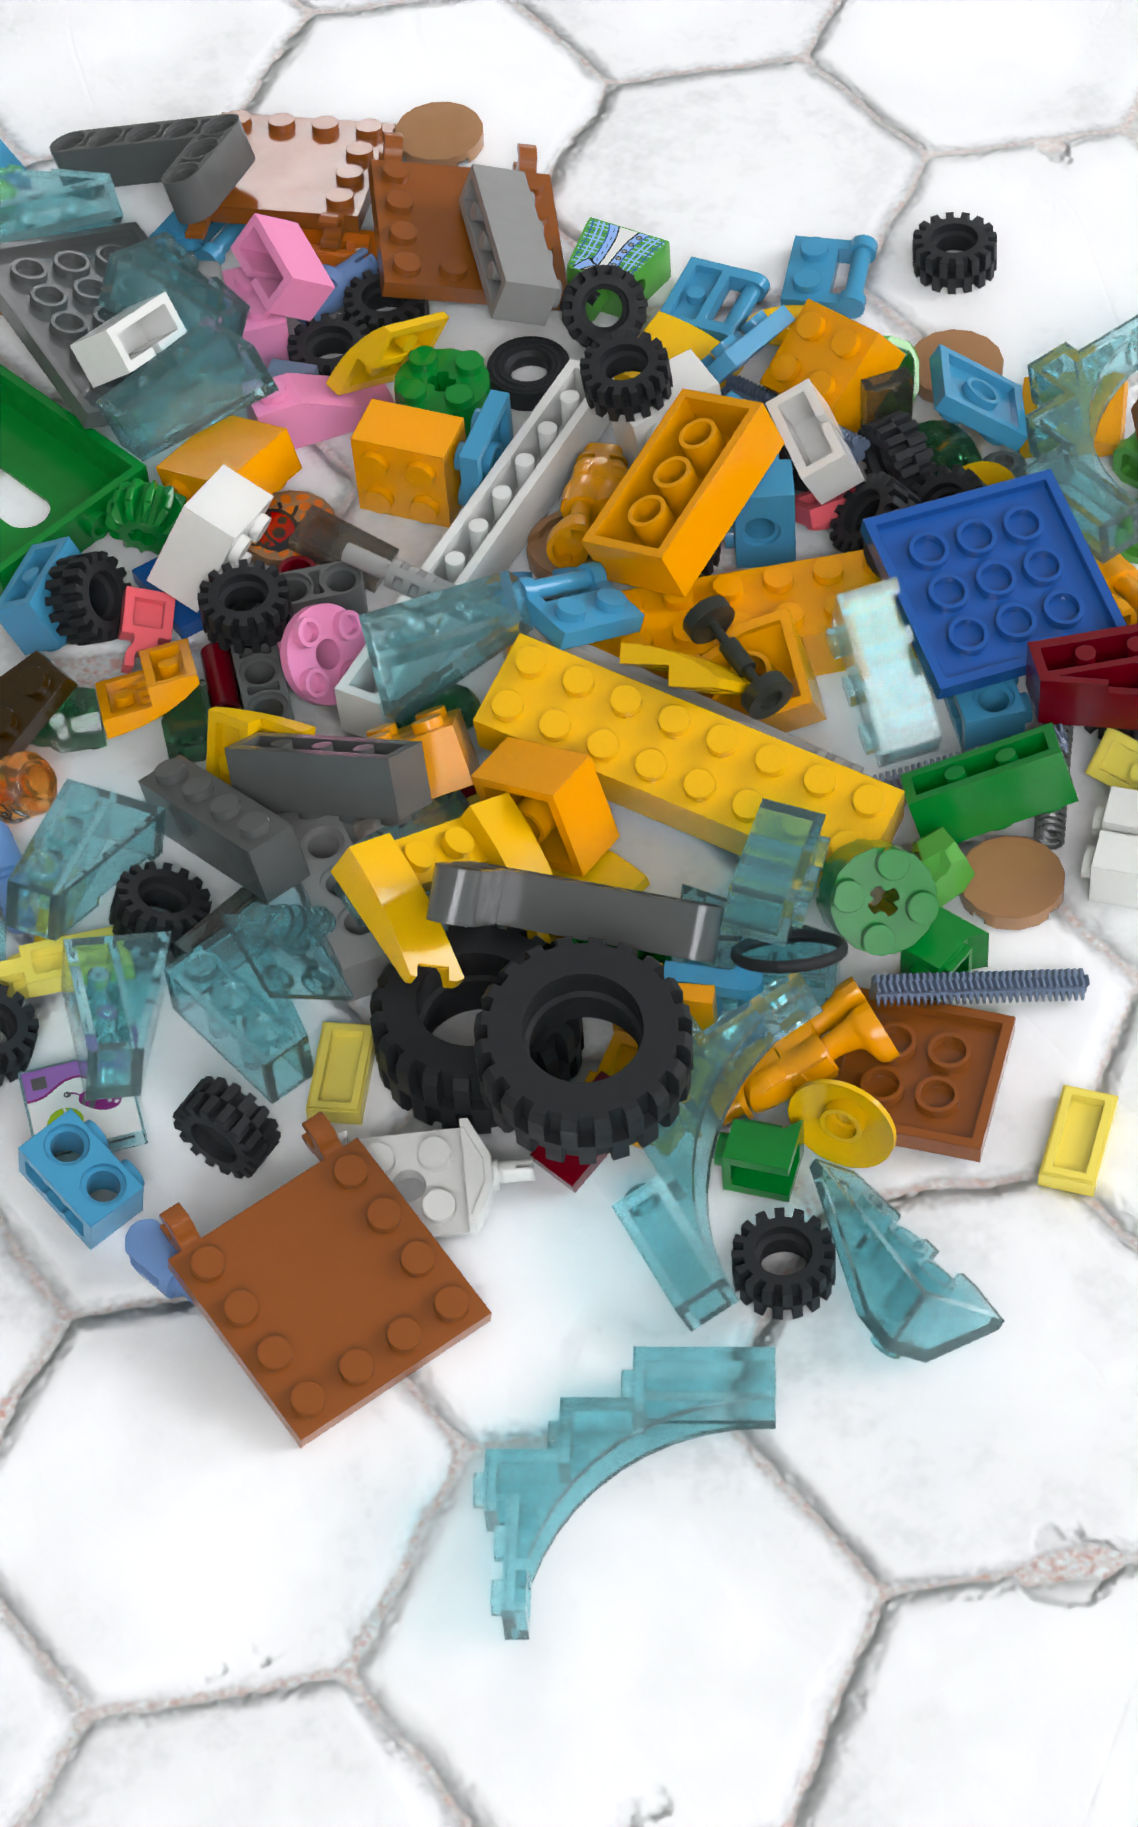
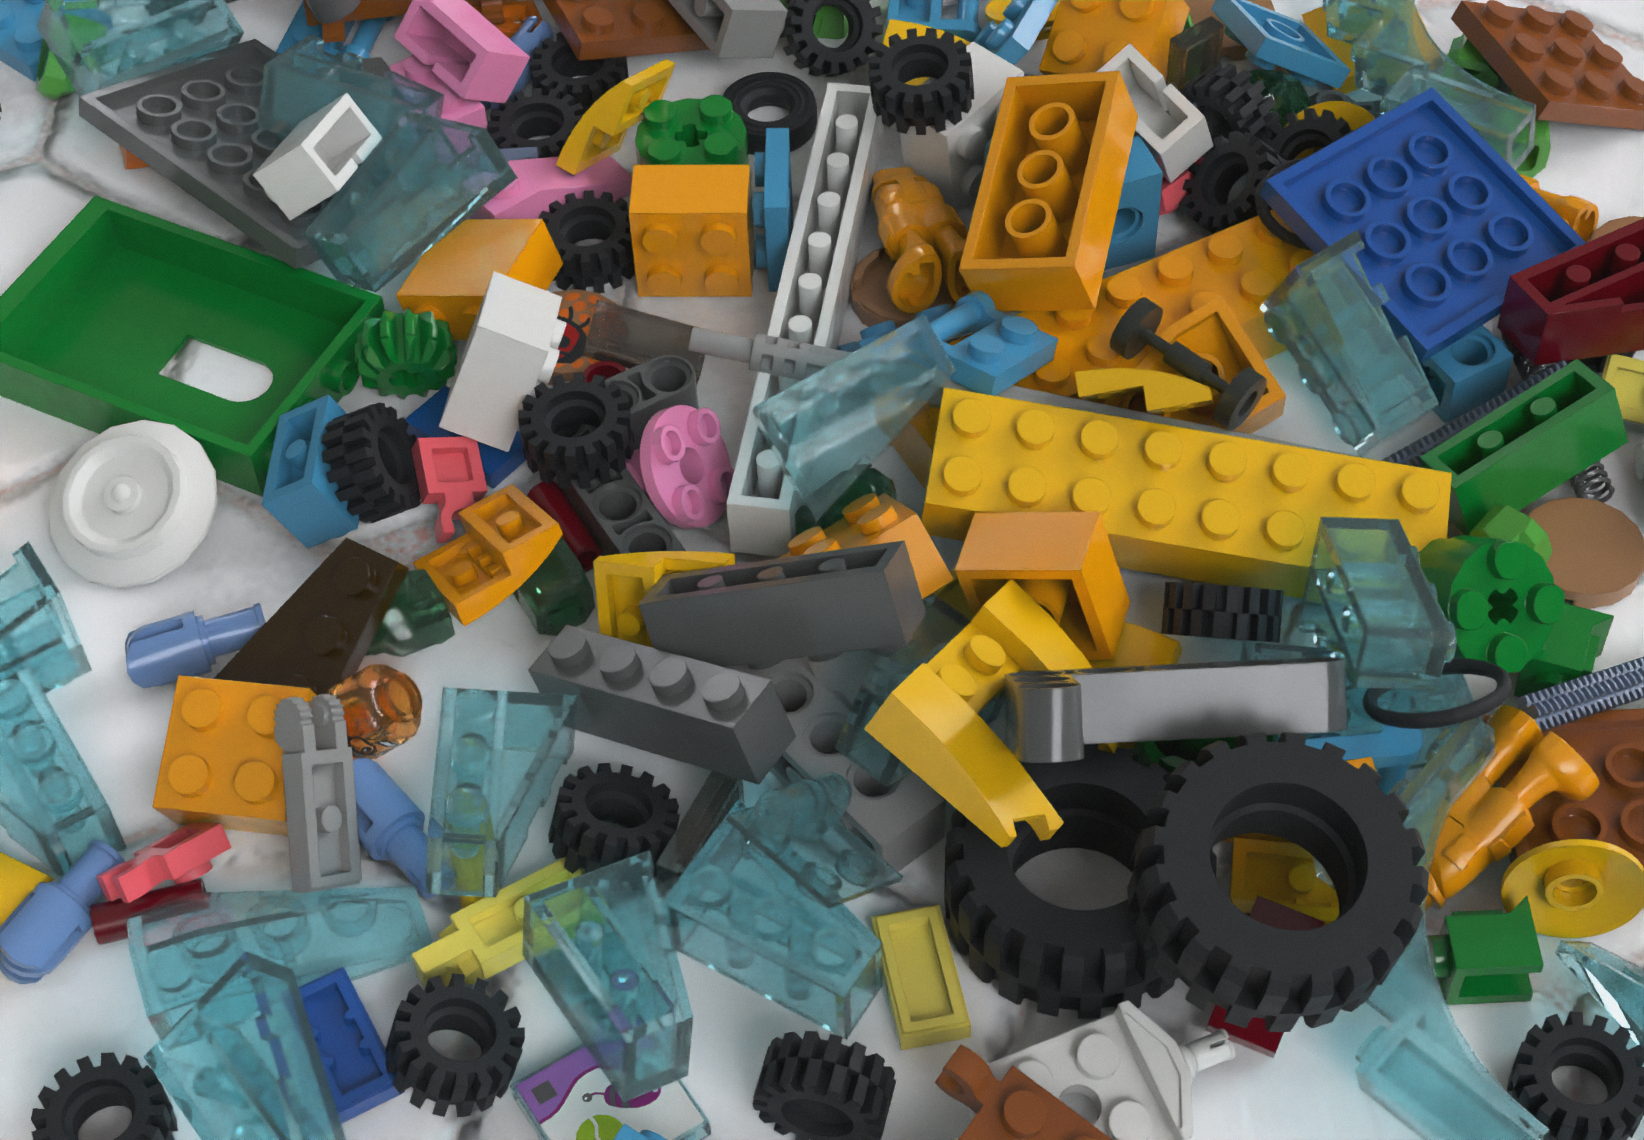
camera: 20 degrees left, 0 degrees up
(320, 438) = (591, 220): none -> black tyre
(683, 859) = (1222, 611): none -> black tyre

